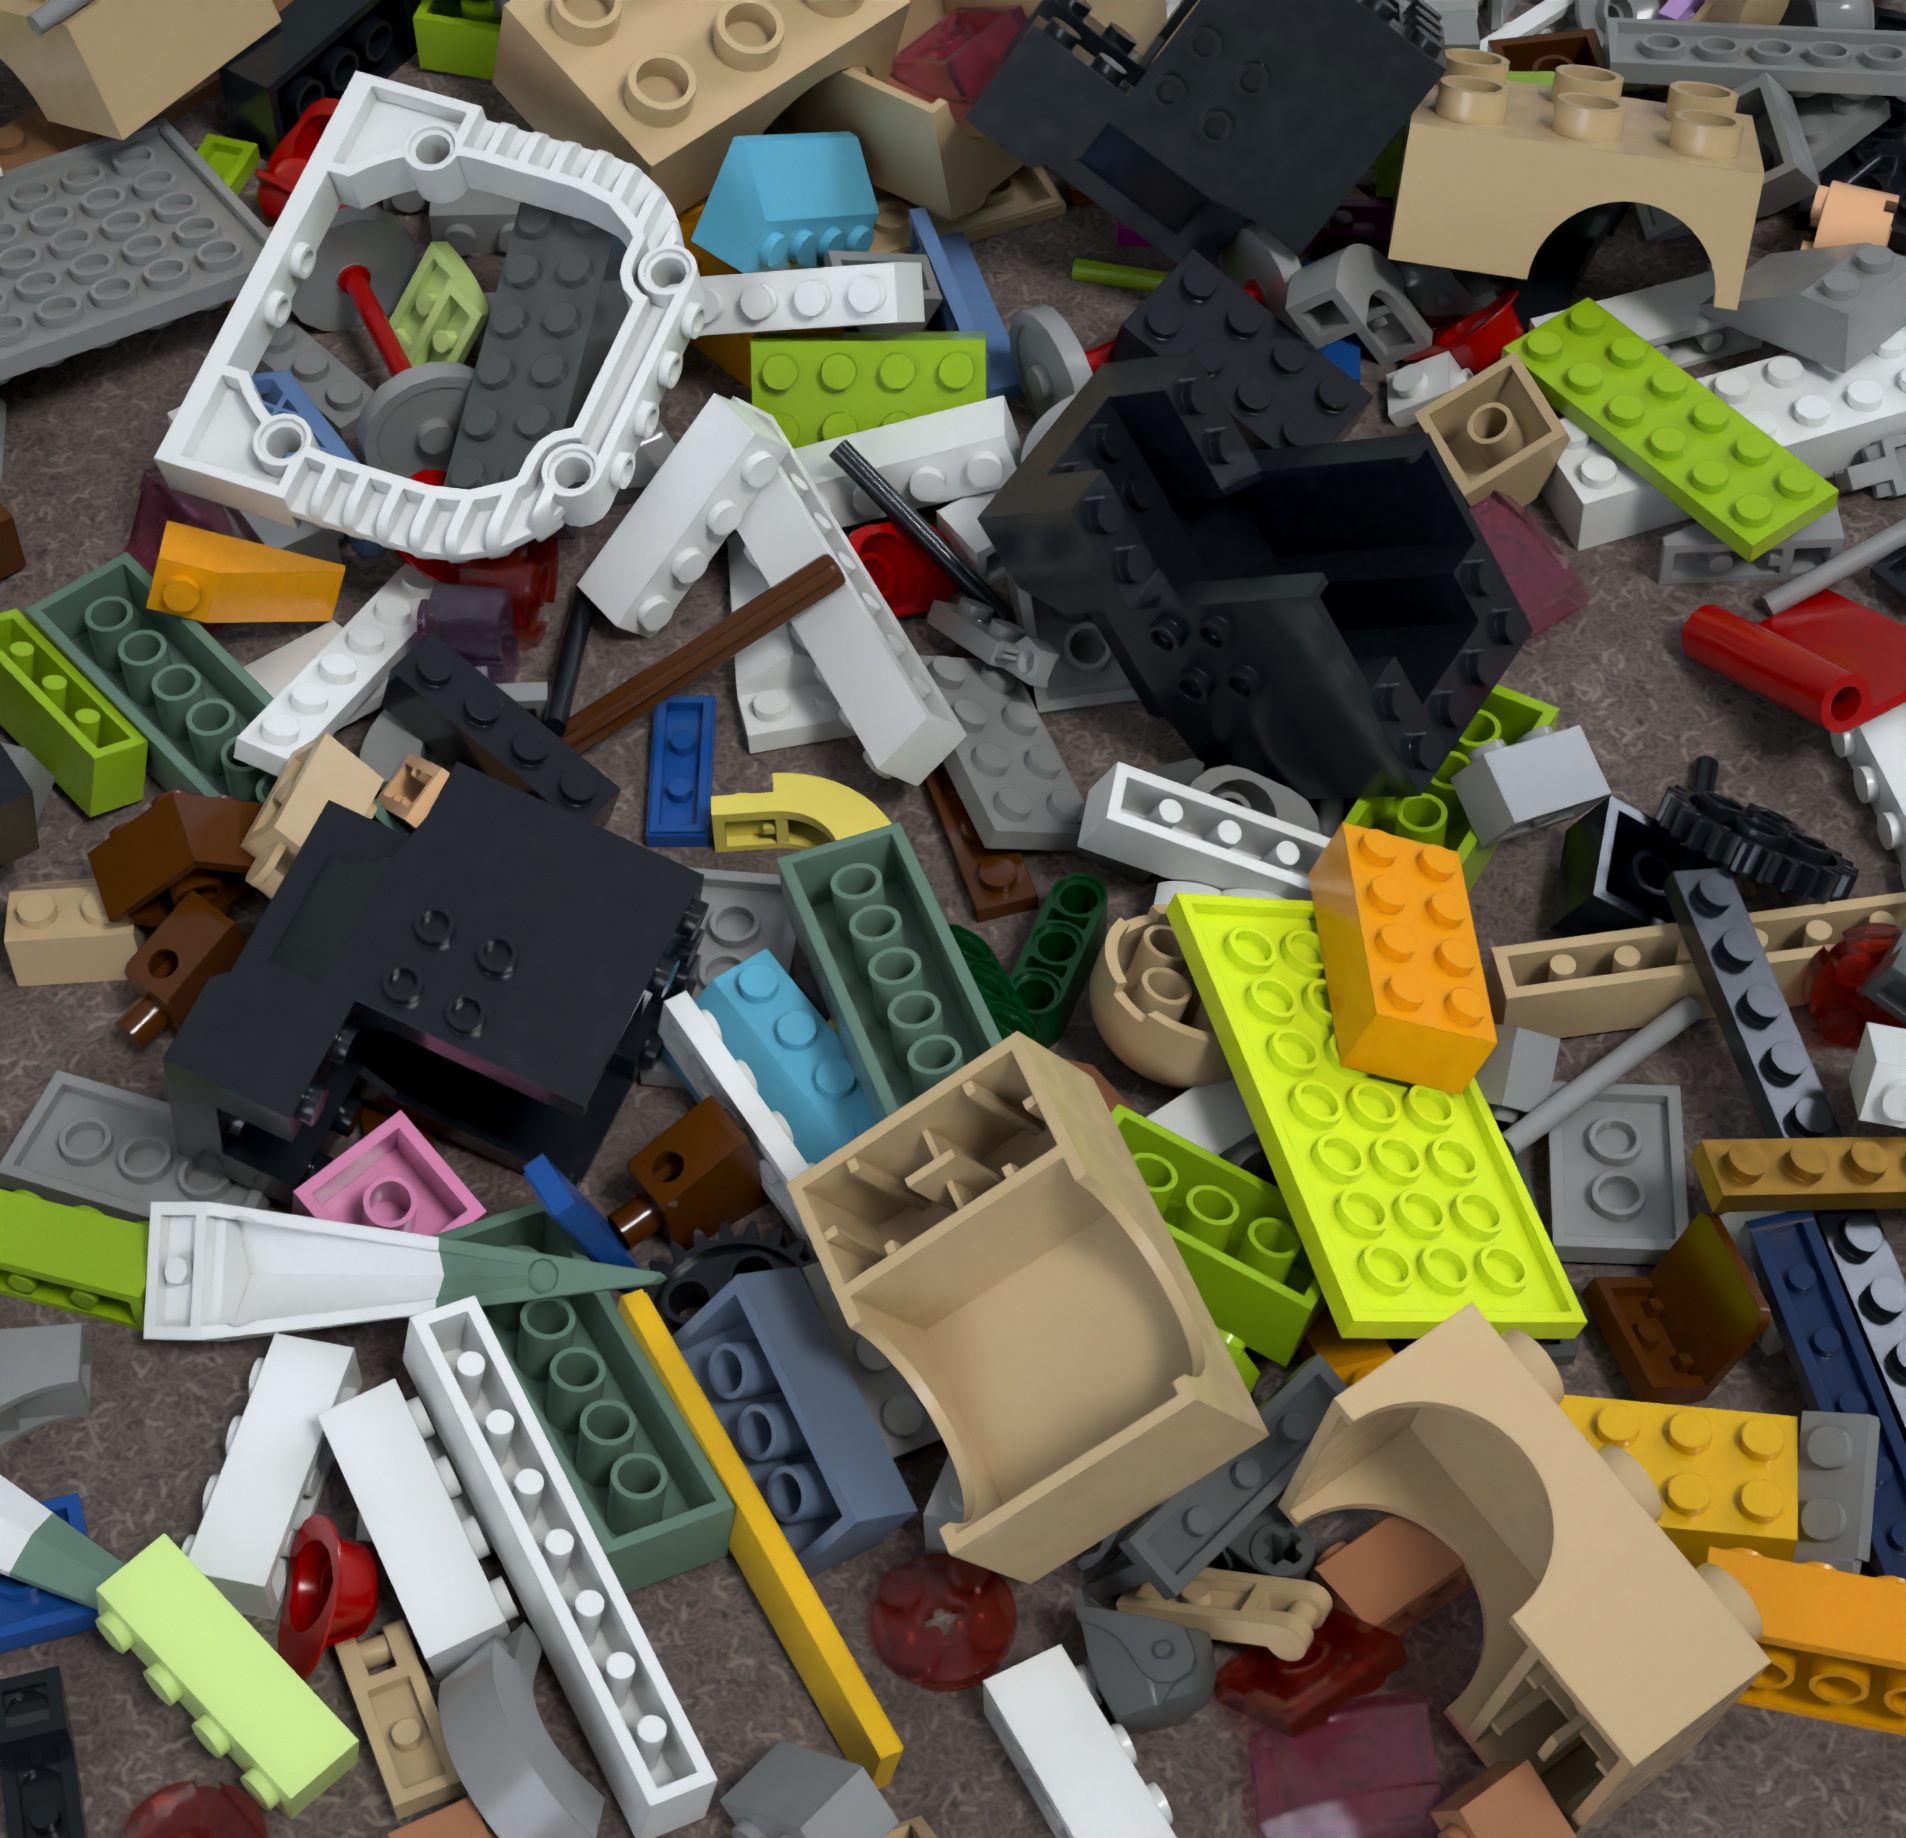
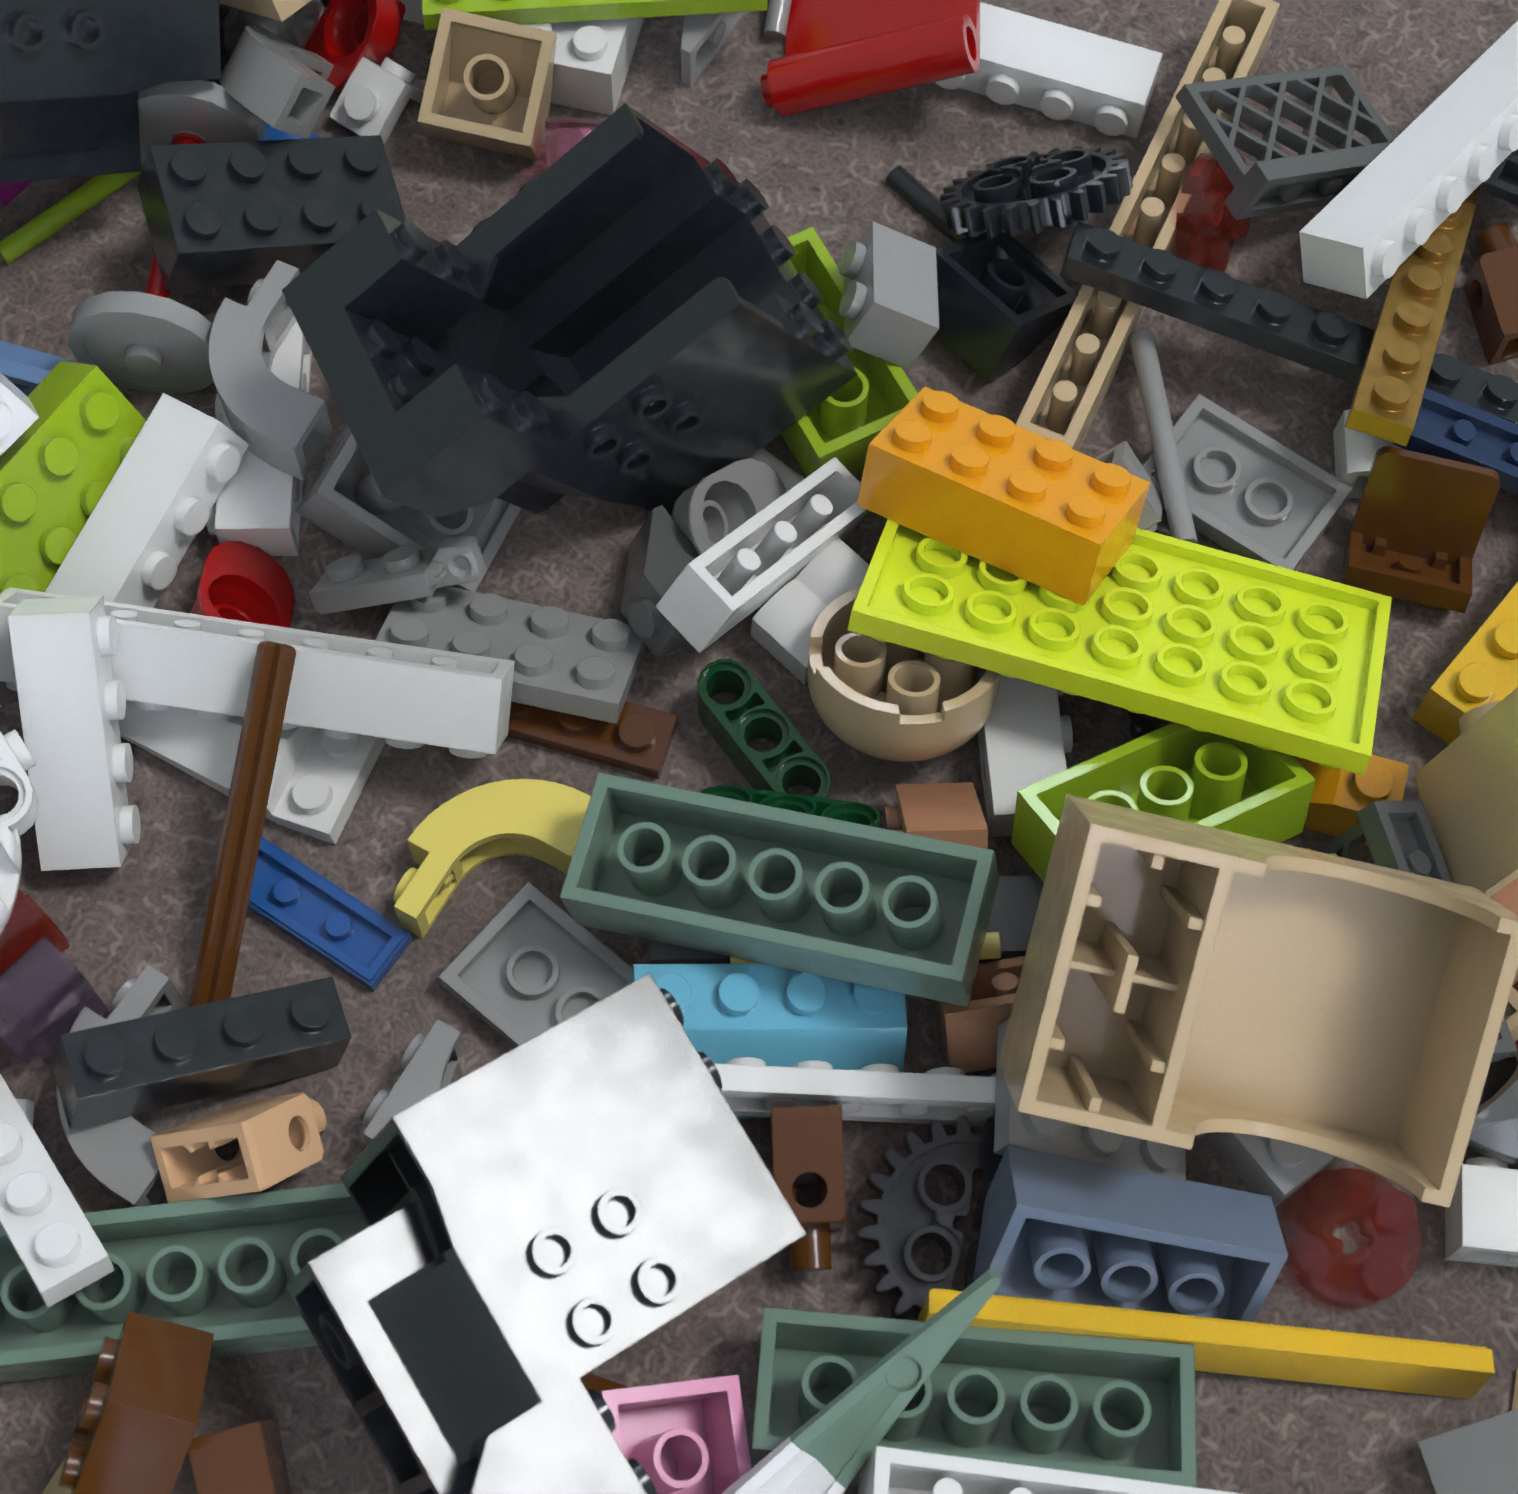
camera: 60 degrees left, 15 degrees up
(309, 779) = (197, 1283): tan brick -> none
(569, 663) = (122, 929): black bar -> none
(578, 1215) = (825, 1299): blue tile -> none
(917, 528) = (225, 556): black bar -> none

